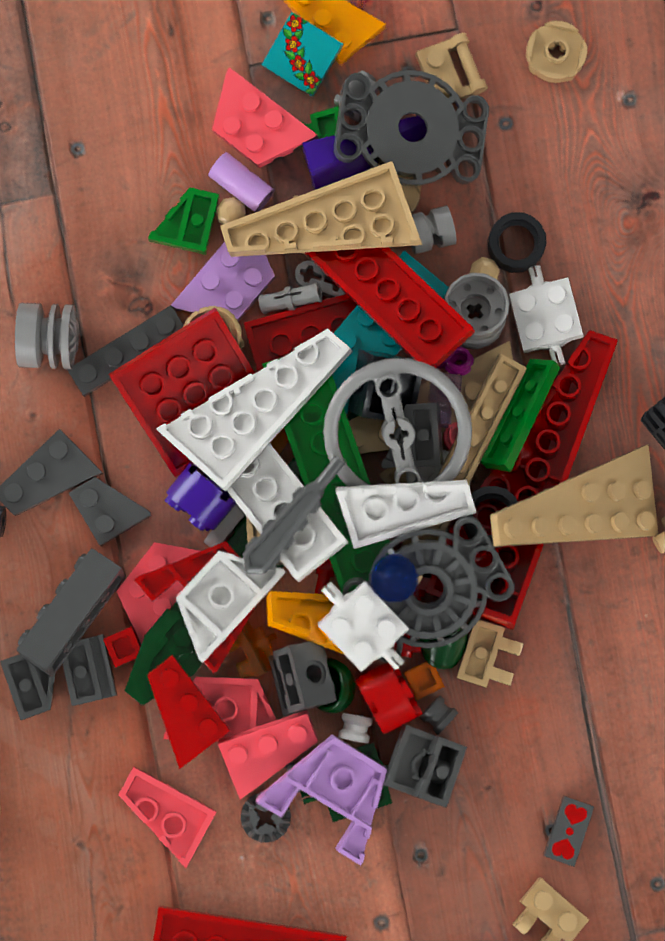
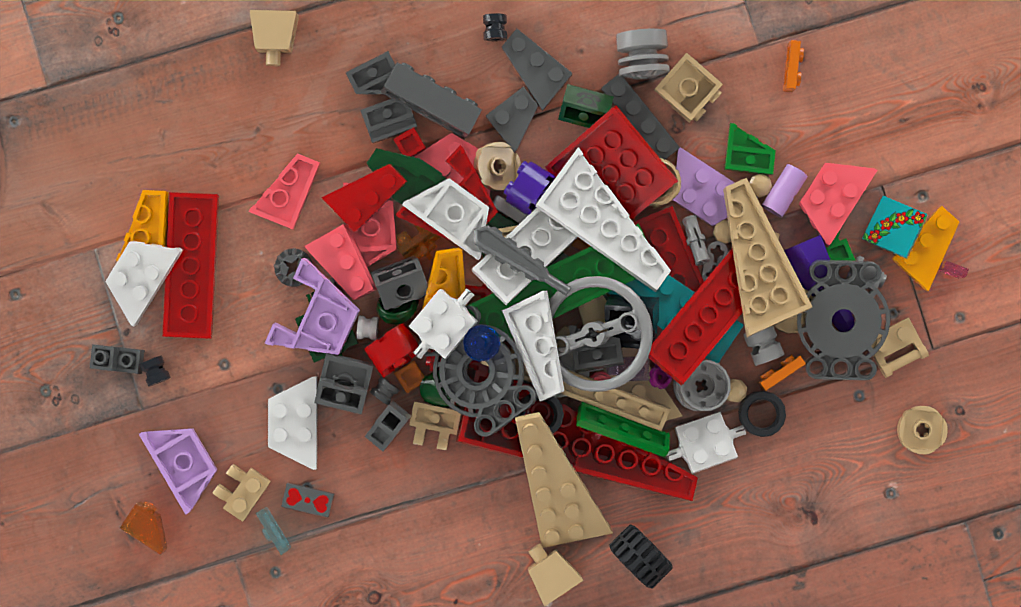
camera: 90 degrees right, 5 degrees up
(98, 156) = (794, 55): none -> orange plate
(98, 284) = (689, 88): none -> tan plate
(104, 417) = (584, 106): none -> dark green brick
(161, 552) = (484, 167): none -> tan plate
(284, 264) = (721, 232): none -> tan tile
(467, 837) = (294, 423): none -> white wing
(473, 224) = (788, 366): none -> orange plate
(484, 714) = (388, 425): none -> dark grey brick
(605, 881) = (272, 530): none -> clear light blue plate

